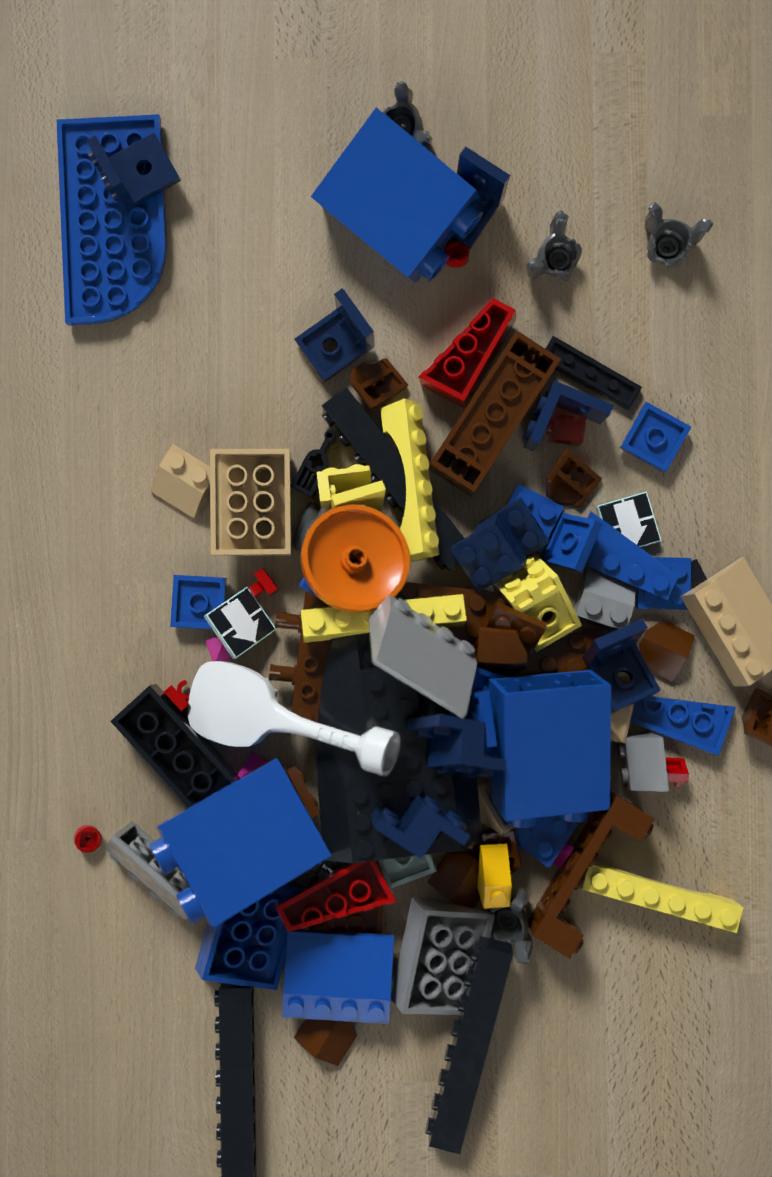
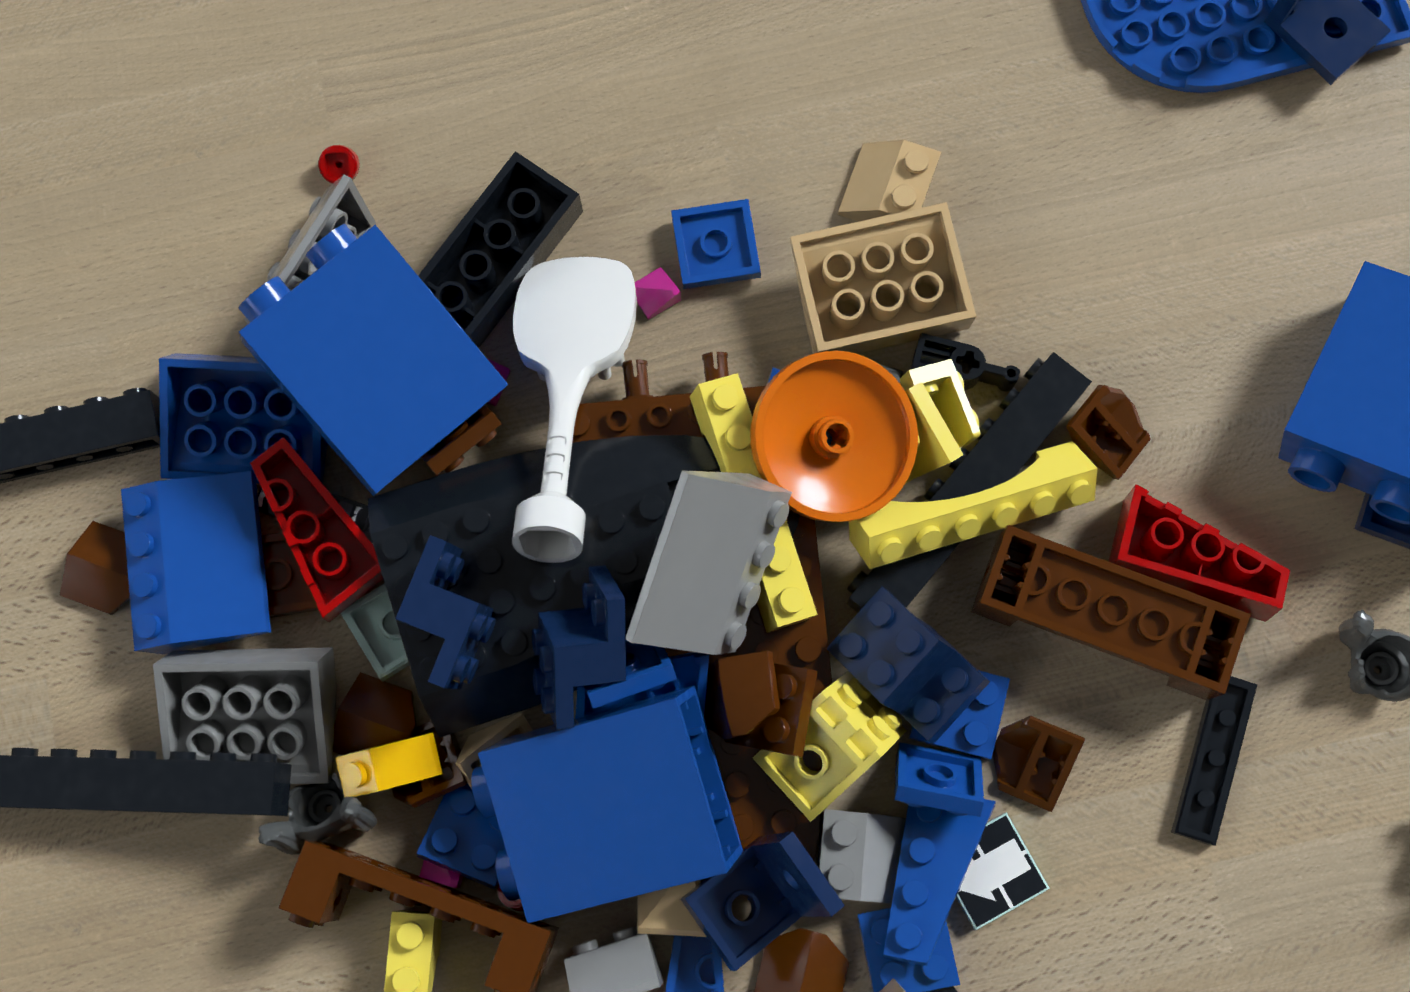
camera: 80 degrees right, 10 degrees down
(177, 696) = (571, 241): red tile -> none
(240, 623) = (698, 306): tile -> none
(264, 583) = (764, 330): red tile -> none
(345, 327) = (1179, 356): dark blue bracket -> none
(457, 253) = (1340, 507): red tile -> none
(566, 430) = (1113, 735): clear red brick -> none
(569, 400) = (1164, 719): dark blue bracket -> none
(655, 437) = (1140, 884): blue plate -> none

